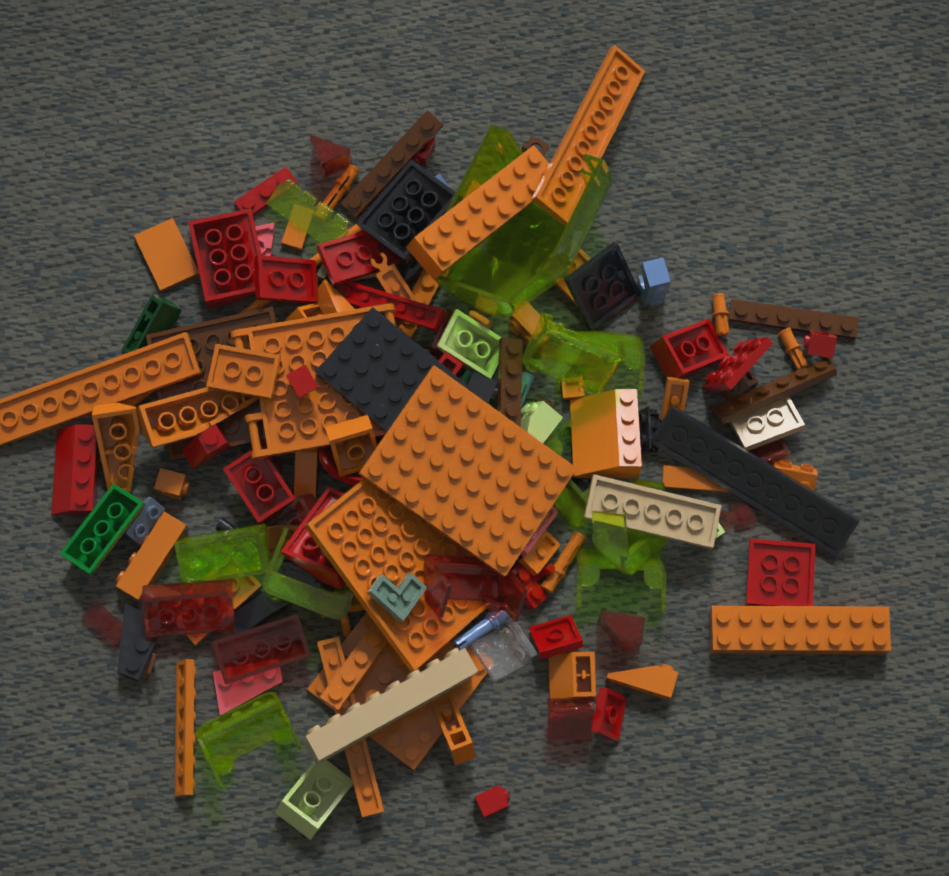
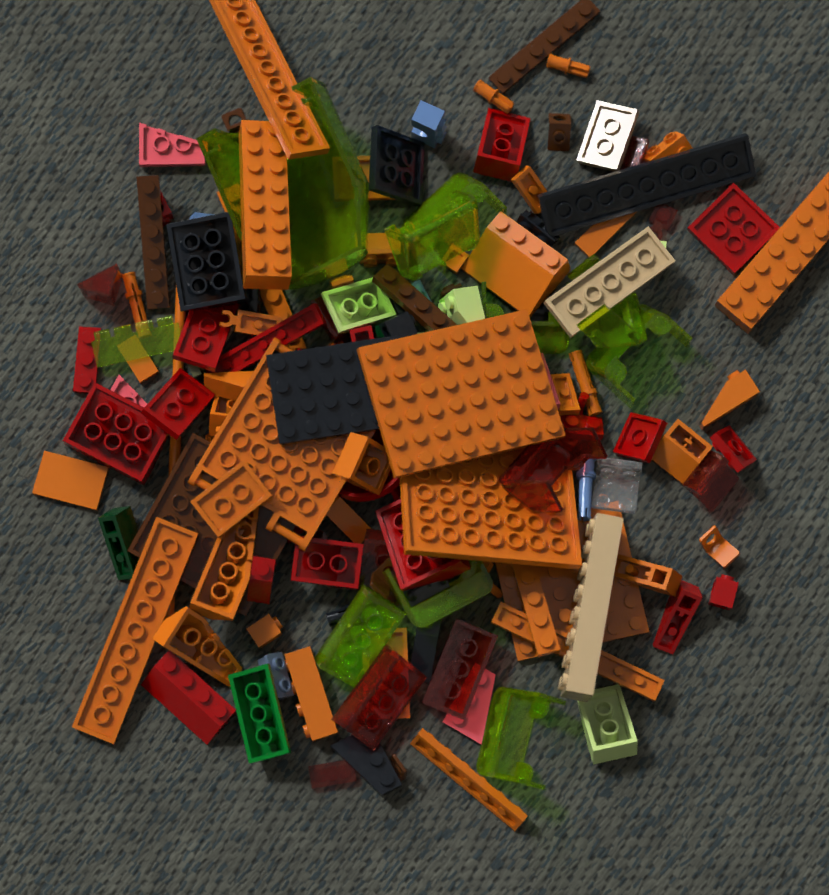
camera: 45 degrees left, 5 degrees up
(301, 382) = (280, 460): red panel -> none
(397, 600) = (518, 532): sand green plate -> none
(443, 781) = (677, 617): none -> red slope
(468, 115) = (166, 149): none -> coral wing
(524, 768) = (718, 547): none -> orange bracket
(623, 629) = (679, 382): clear red slope -> none
(736, 365) = (548, 119): red plate -> none
(774, 391) = (589, 109): reddish brown plate -> none
(820, 344) = (583, 42): red brick -> none

